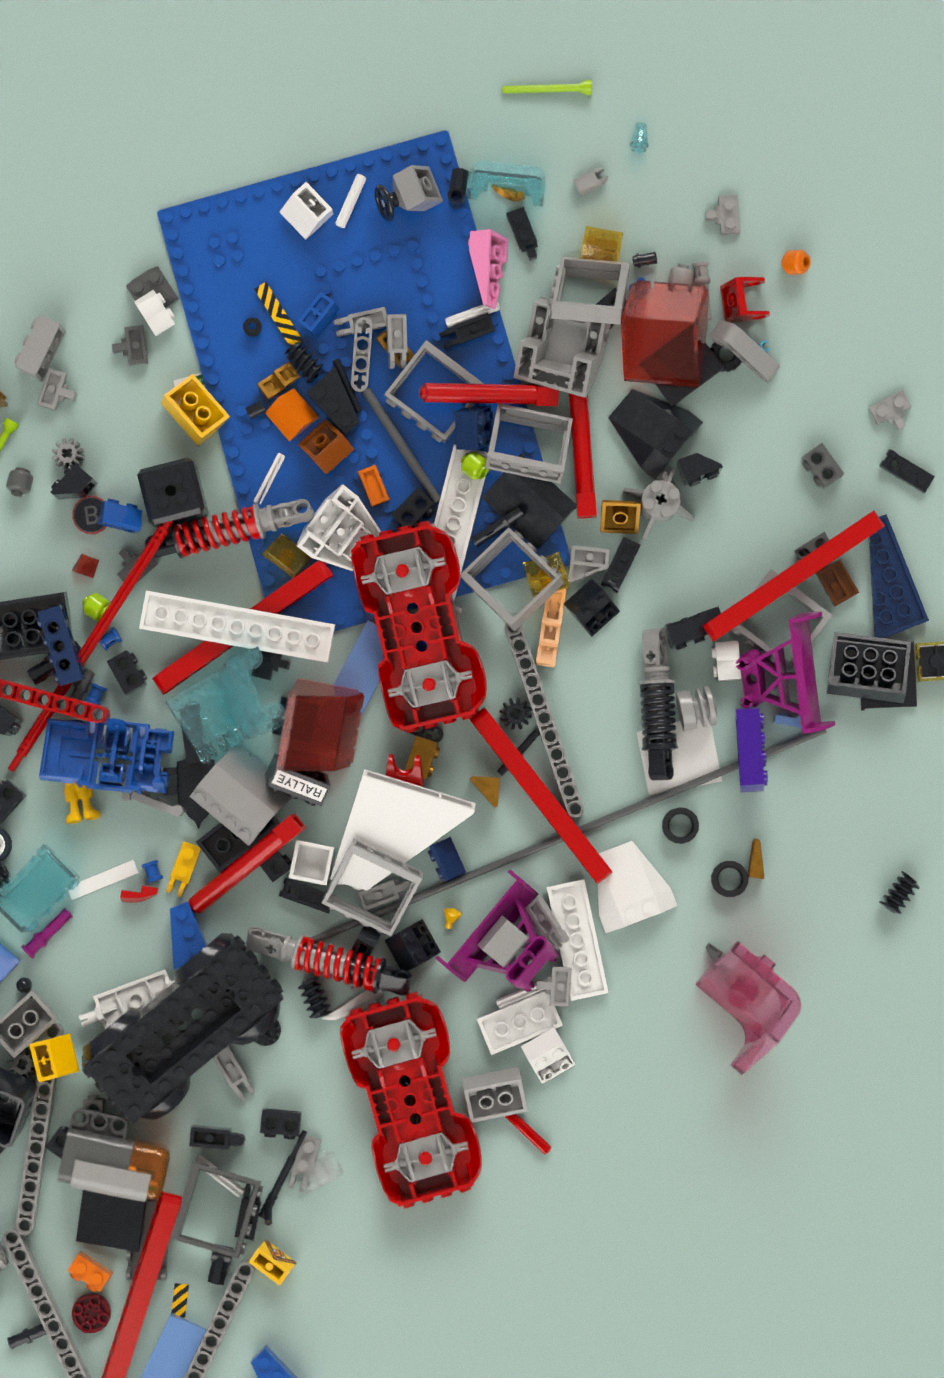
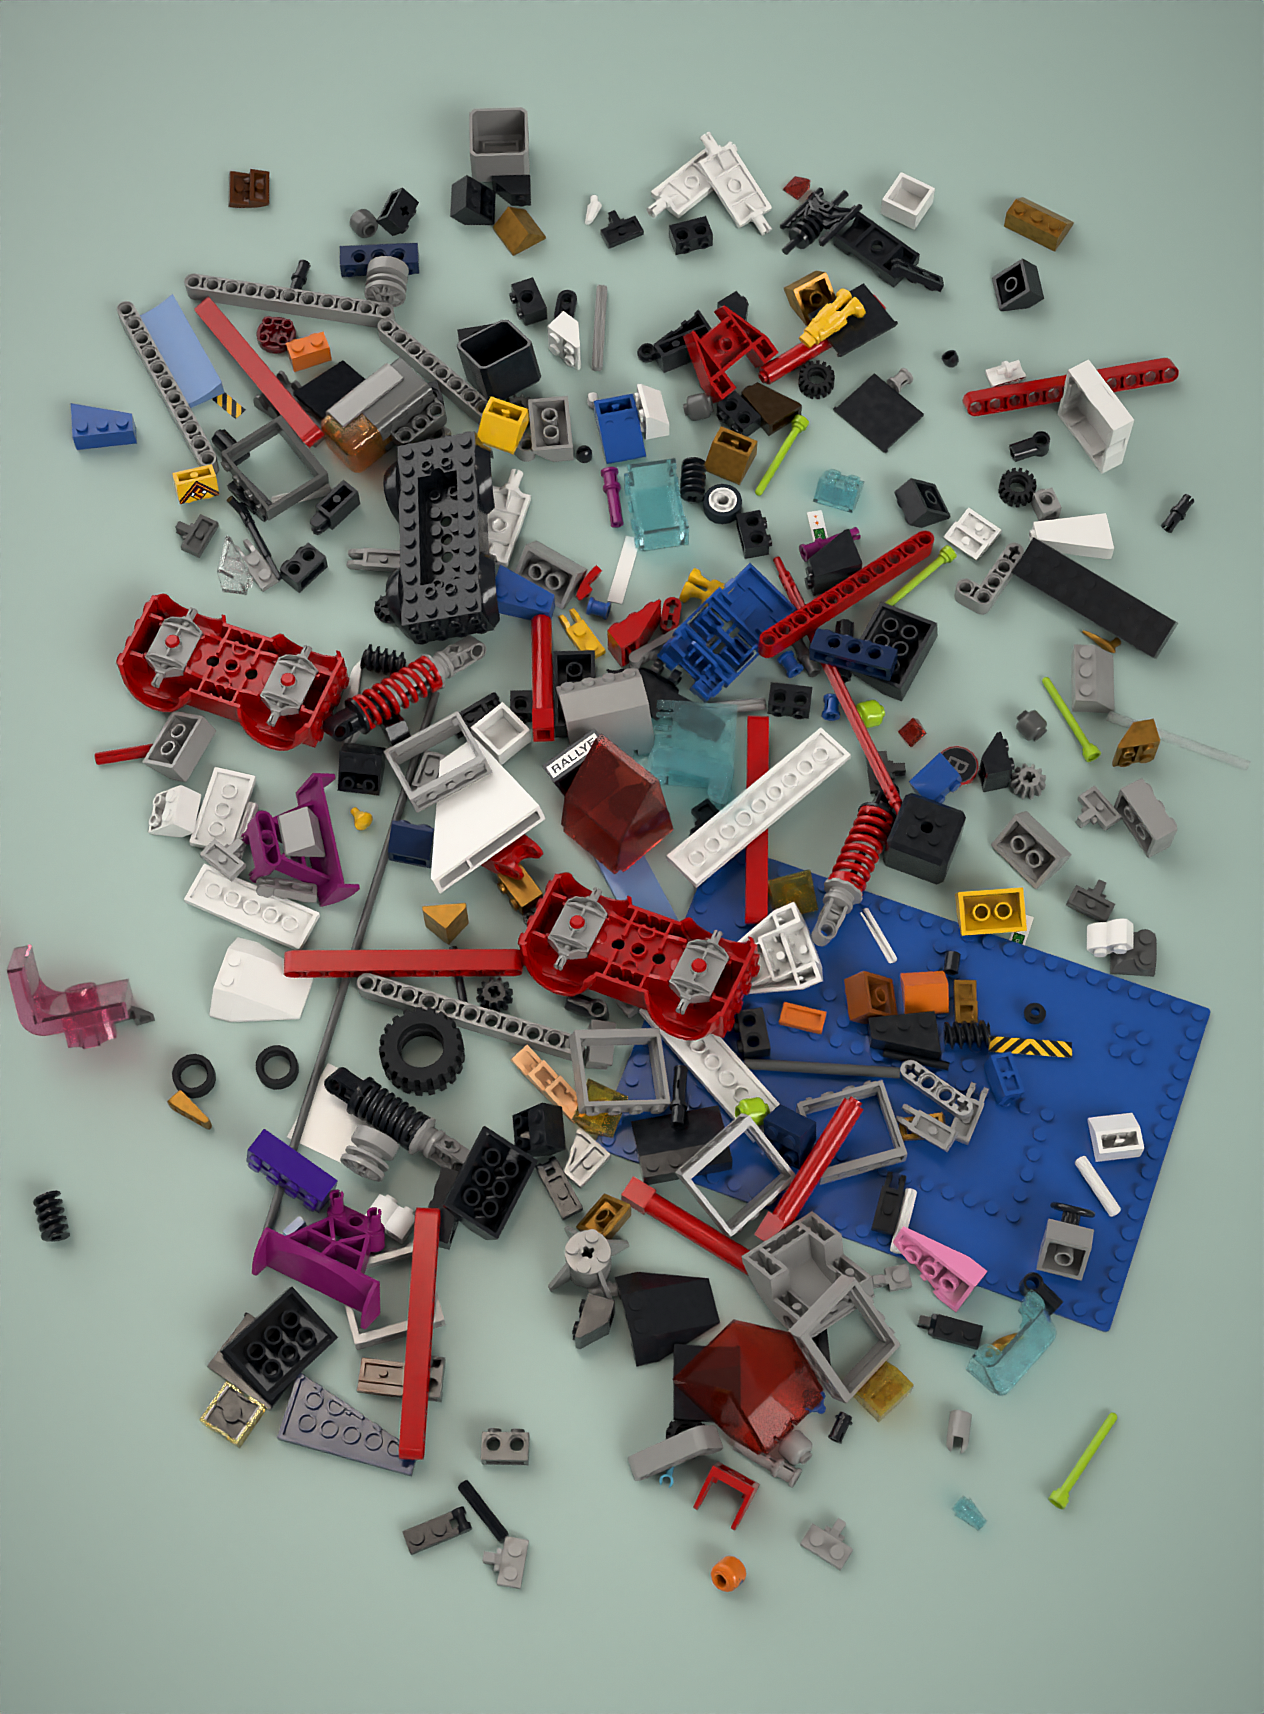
camera: 125 degrees right, 20 degrees down
(116, 809) = (666, 615): none -> red beam
(122, 415) = (1030, 849): none -> light grey slope
(149, 930) = (551, 572): none -> light grey slope
(159, 710) = (746, 704): none -> light grey axle
(163, 825) = (633, 632): none -> red slope
(312, 1227) = (196, 535): none -> dark grey hinge
(478, 642) = (586, 1006): none -> black piece
(490, 619) = (599, 1056): none -> light grey hinge
(516, 294) = (895, 1278): none -> light grey plate
(596, 704) = (415, 1025): none -> black tyre
(658, 605) = (489, 1184): none -> black slope
(872, 451) = (482, 1510): none -> black axle

